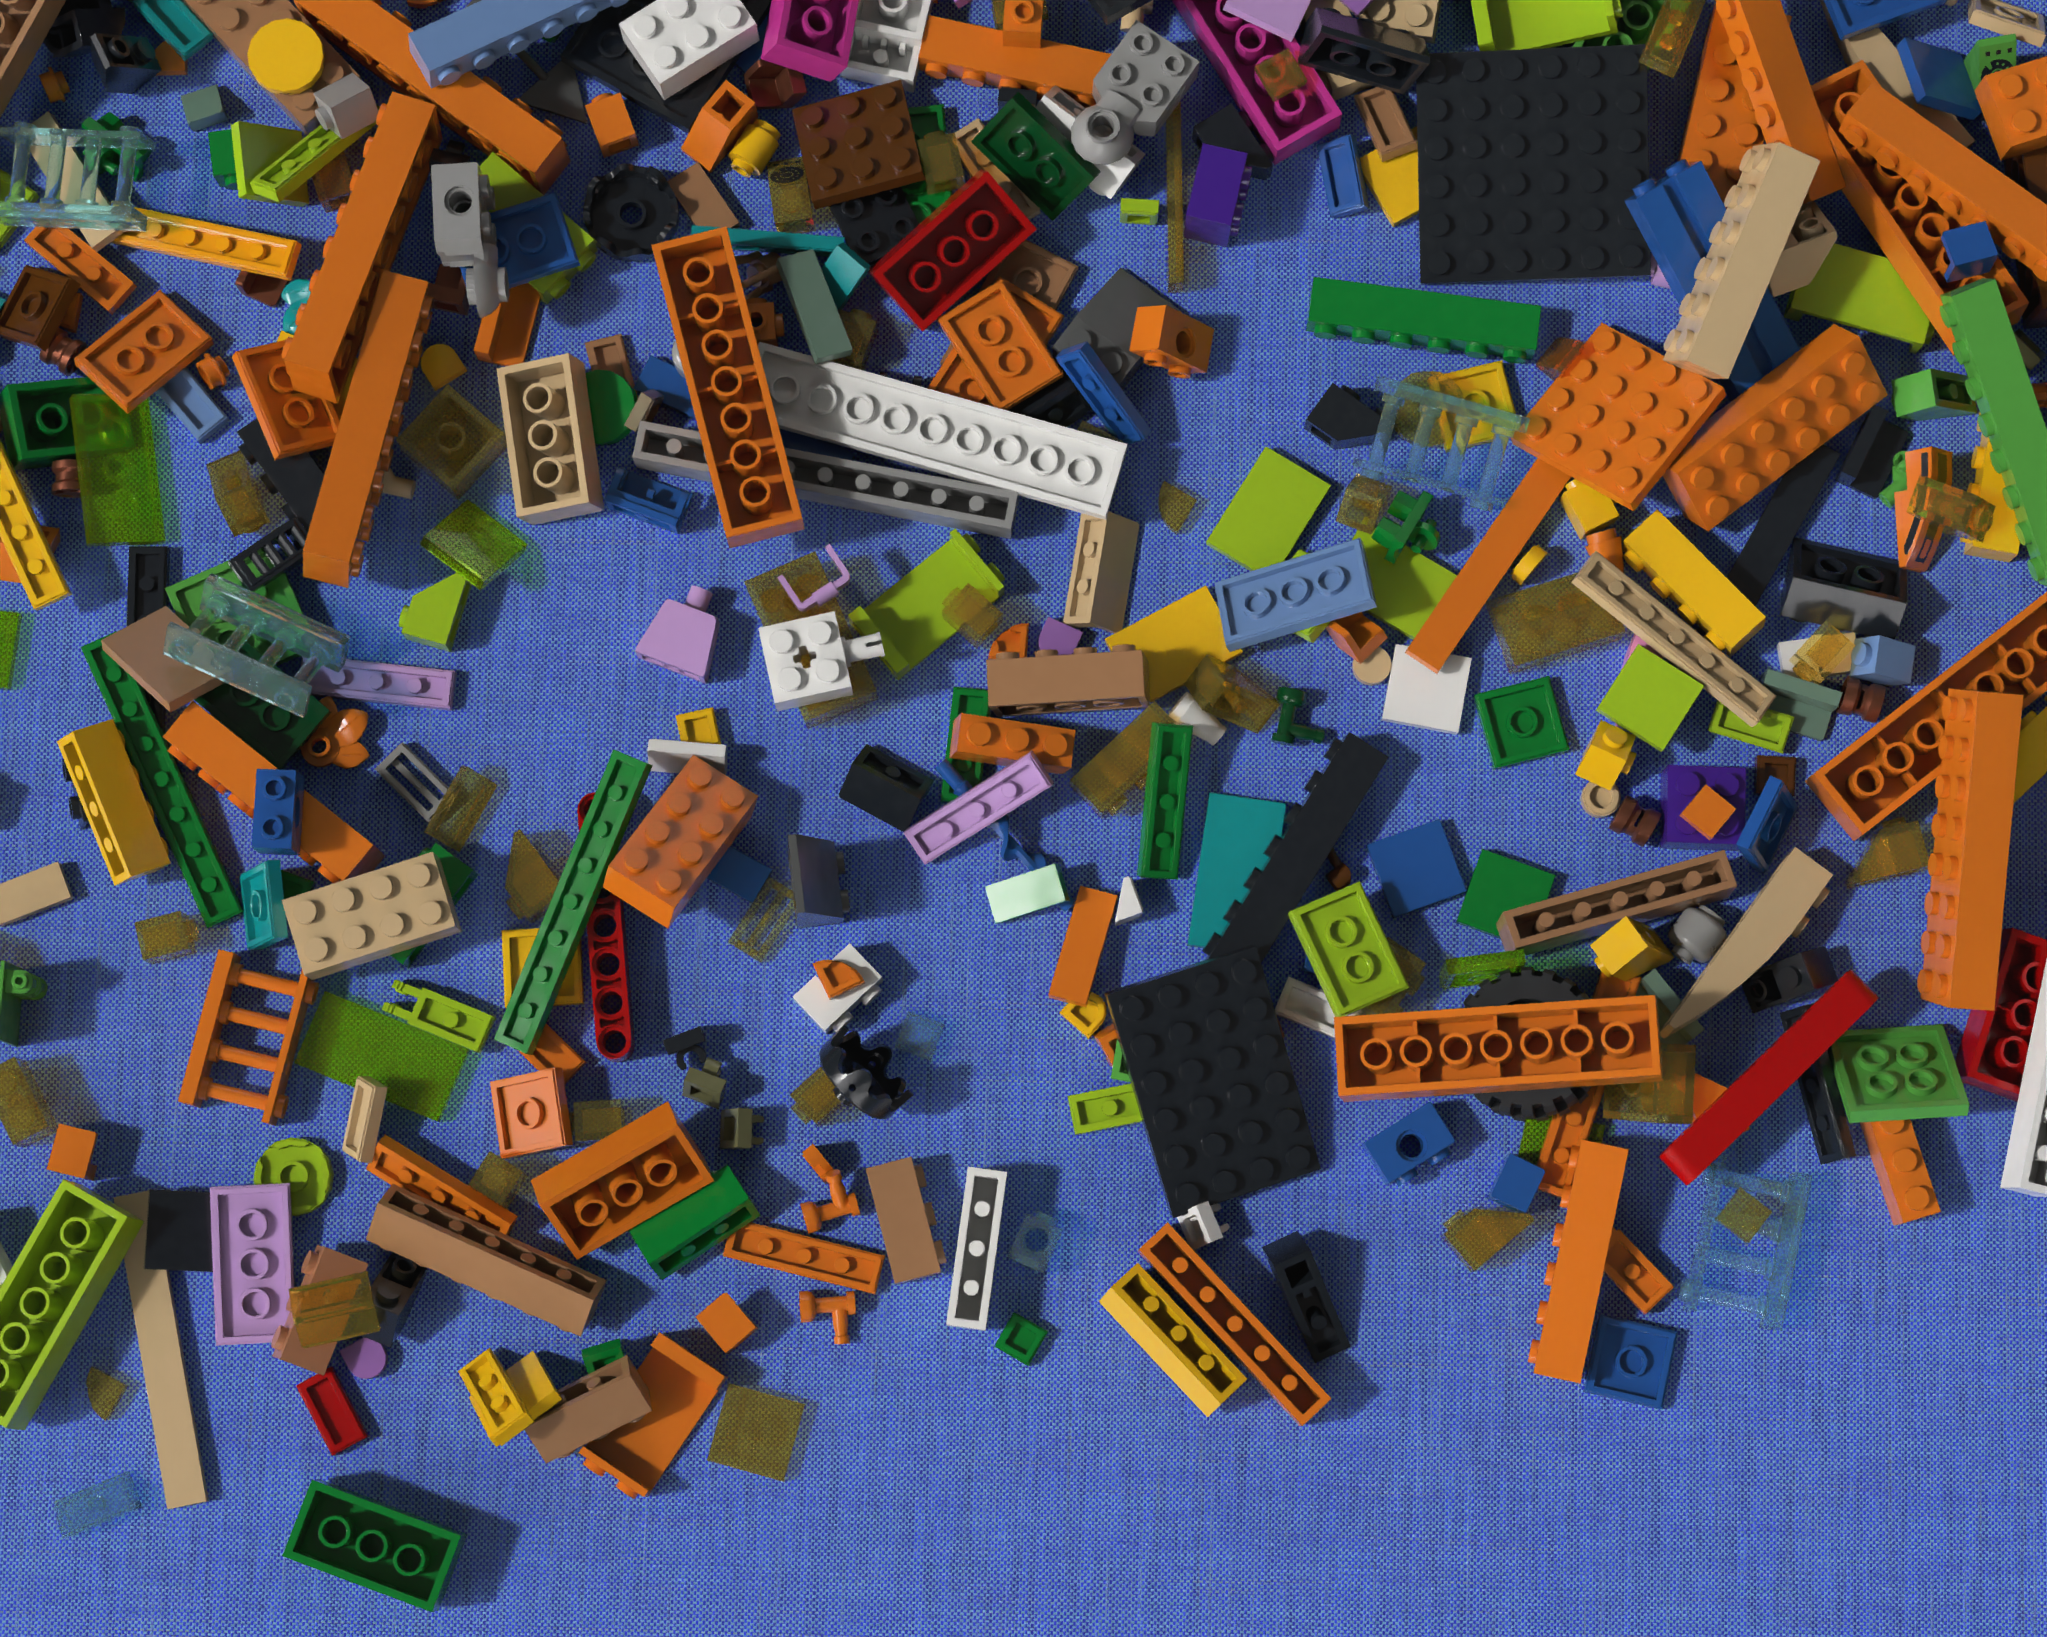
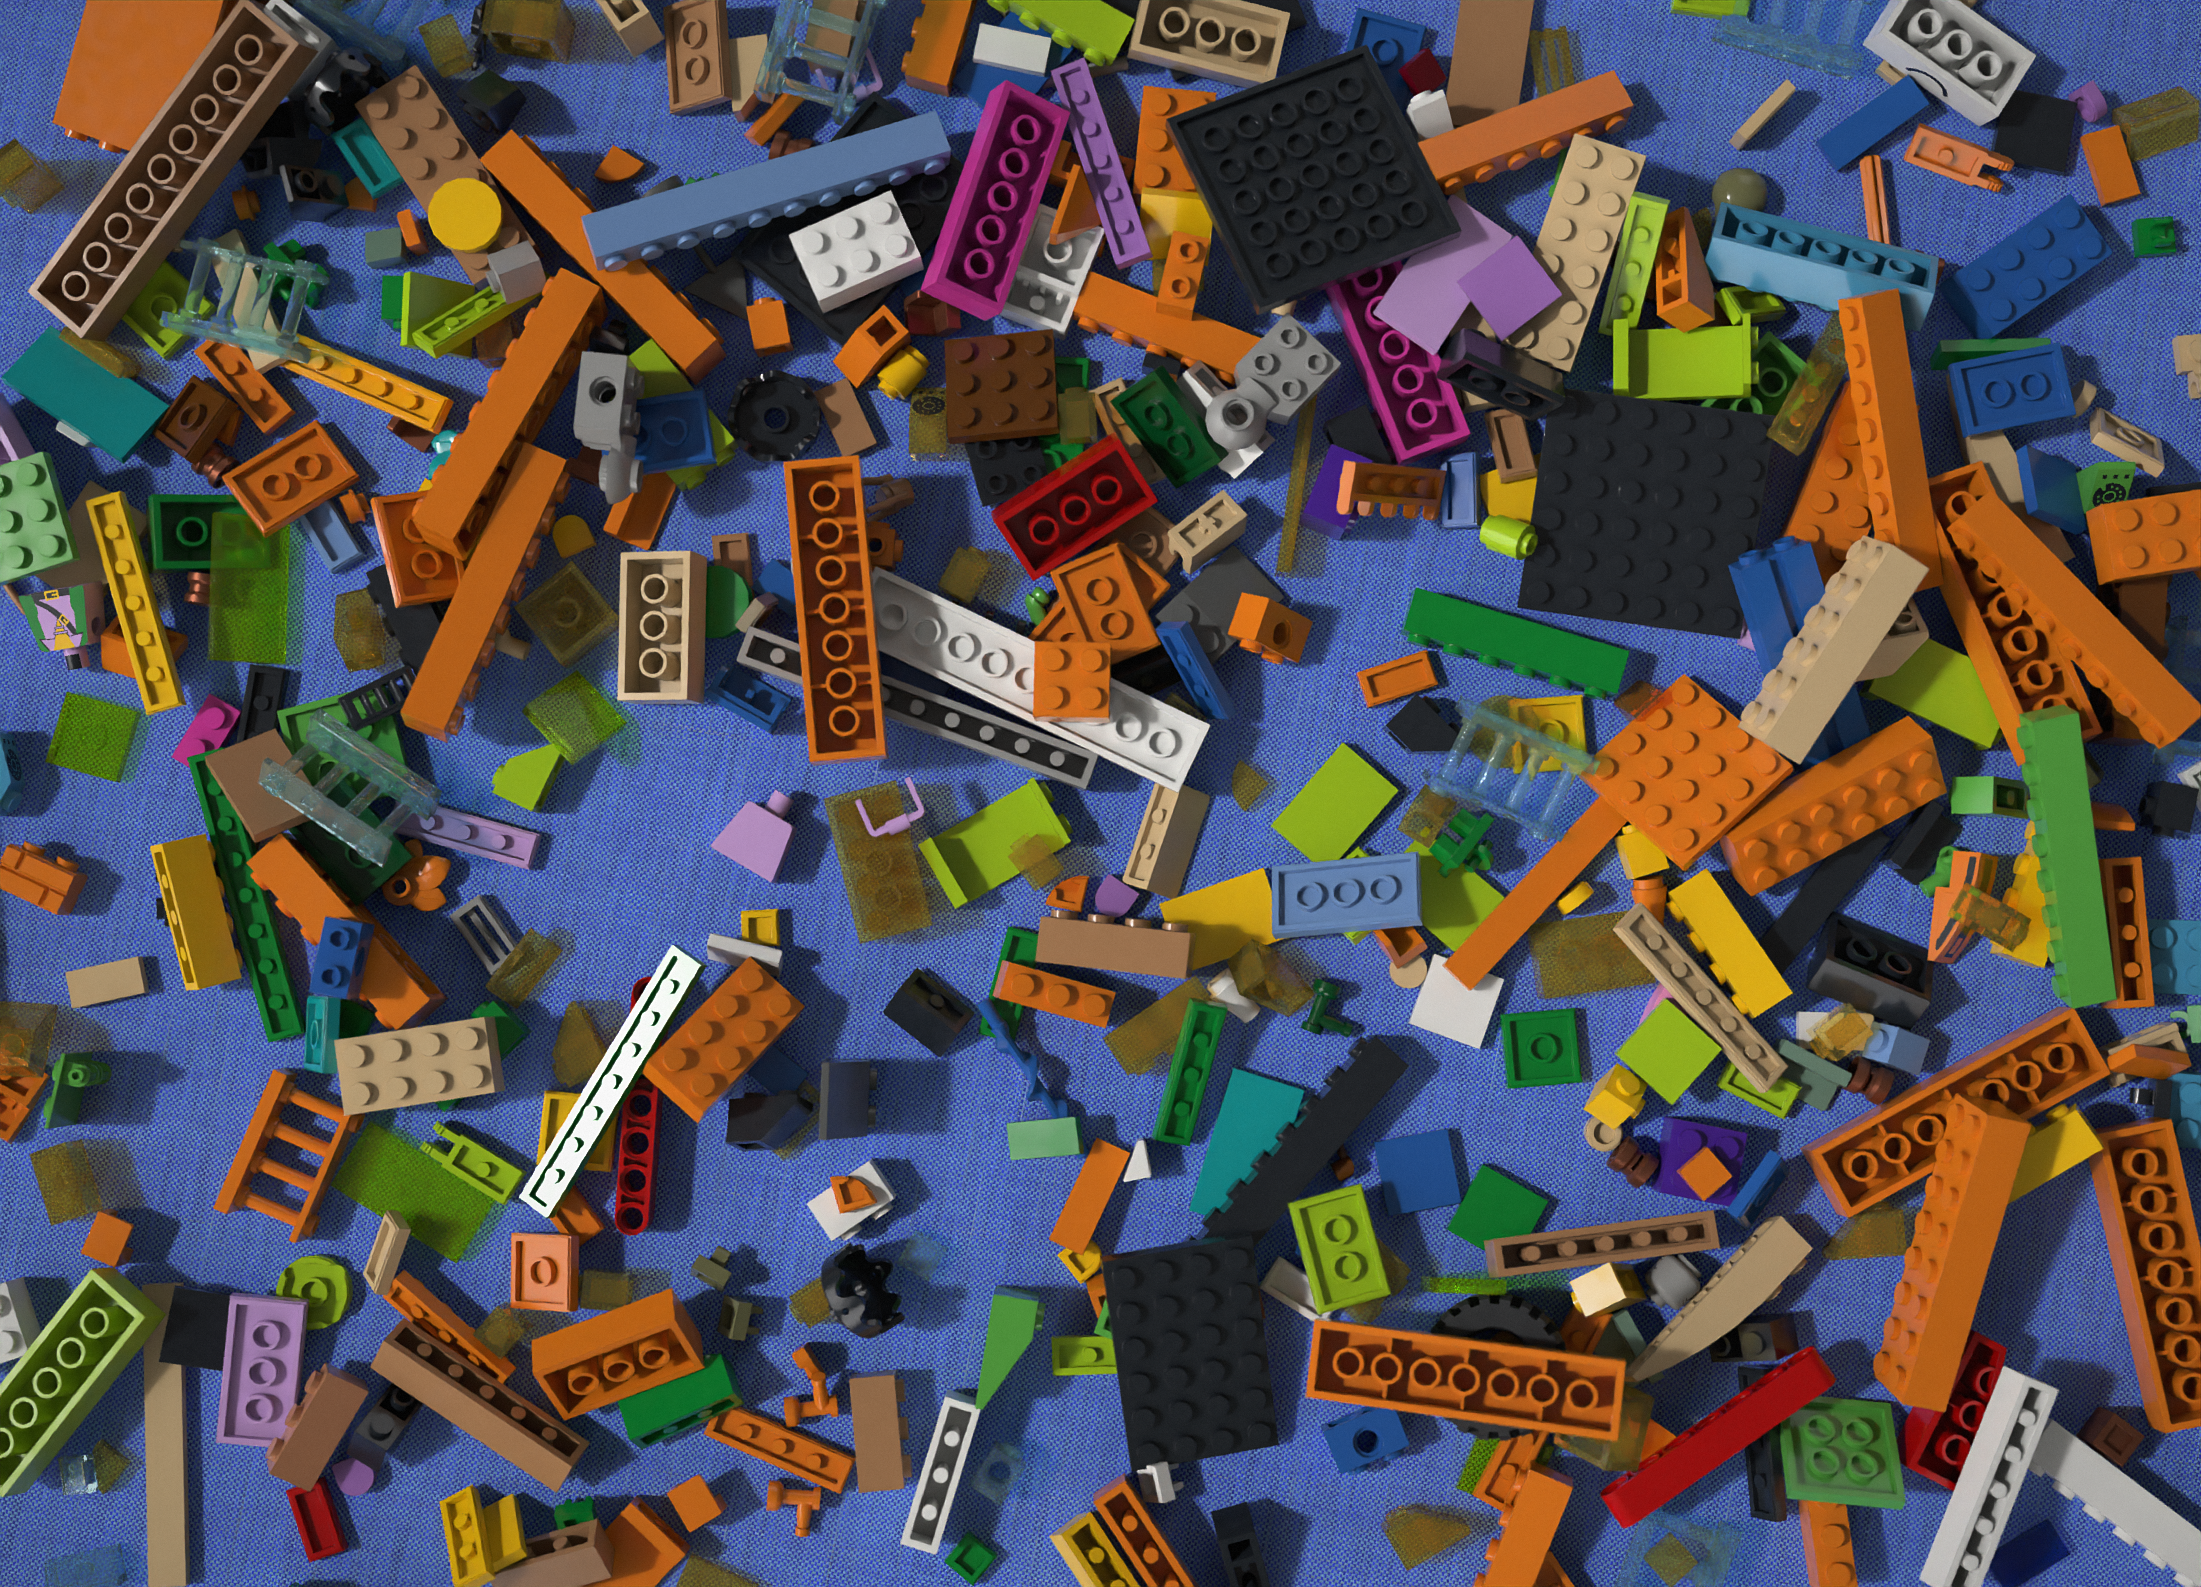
camera: 10 degrees right, 5 degrees up
(75, 1403) = (78, 1474): none -> clear light blue tile
(97, 618) = (209, 729): none -> dark pink plate
(167, 937) = (228, 1046): clear yellow brick -> none
(230, 87) = (412, 232): none -> orange tile
(334, 1309) = (325, 1435): clear yellow panel -> none
(686, 1042) = (699, 1226): black tile -> none
(736, 920) = (765, 1121): none -> black slope
(777, 241) = (904, 468): teal tile -> none
(814, 306) = (933, 541): sand green tile -> none
(831, 655) = (895, 889): white brick -> none
(844, 273) = (957, 519): teal tile -> none
(928, 357) = (1035, 603): none -> bright green arm
(978, 807) = (1012, 1050): lavender tile -> none
(980, 420) = (1072, 682): none -> orange brick
(1024, 1090) = (1009, 1332): none -> bright green slope
(1092, 255) = (1207, 531): none -> tan hinge
(1139, 211) = (1260, 494): lime tile -> none
(1273, 177) = (1390, 487): none -> orange hinge
(1280, 74) = (1417, 386): clear yellow tile -> none
(1310, 375) = (1397, 678): none -> orange tile
(1398, 211) = (1508, 536): none -> lime brick
(1516, 1184) = (1459, 1491): blue panel -> none
(1778, 767) = (1772, 1135): reddish brown tile -> none
(1969, 251) = (2055, 674): blue panel -> none

